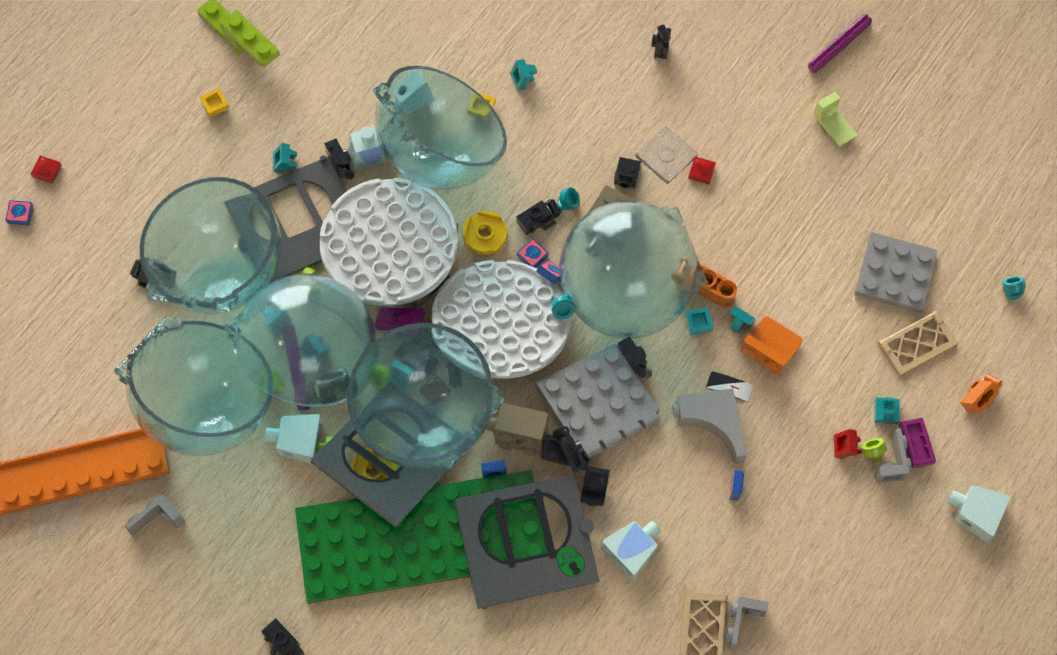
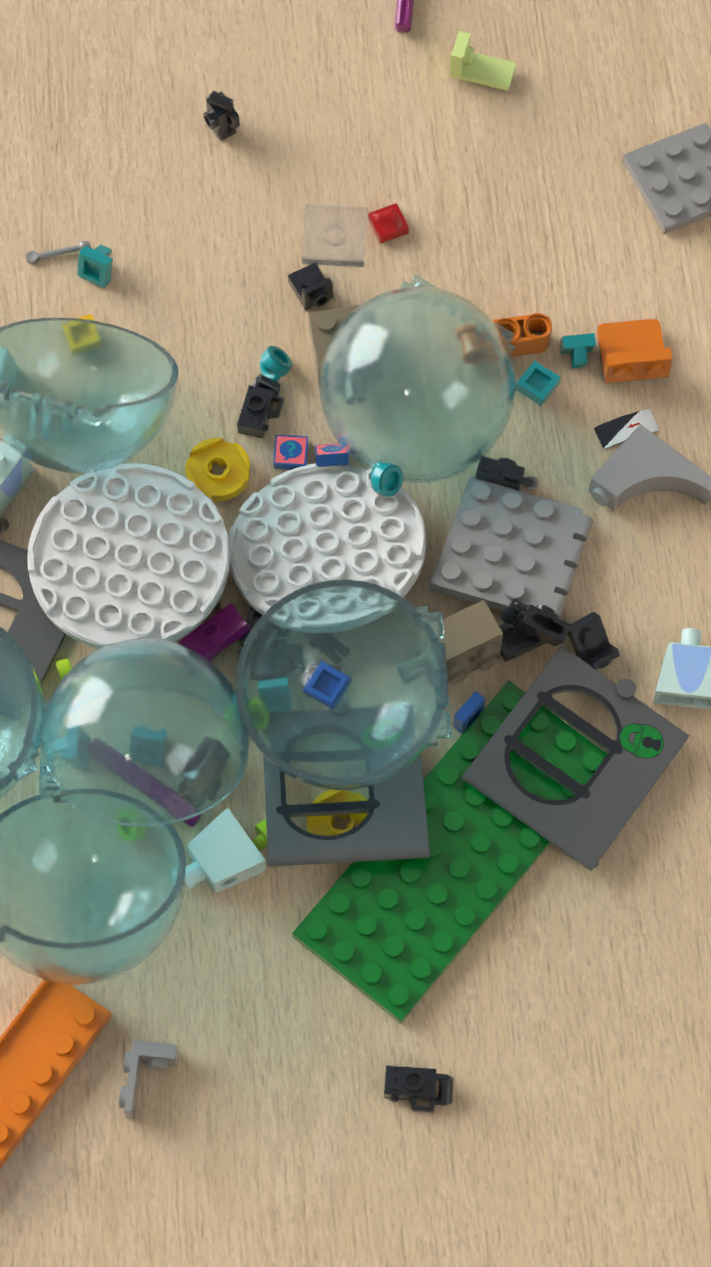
camera: 40 degrees left, 0 degrees up
(412, 388) = (327, 685): none -> blue tile
(496, 46) = (33, 257): none -> light grey hinge

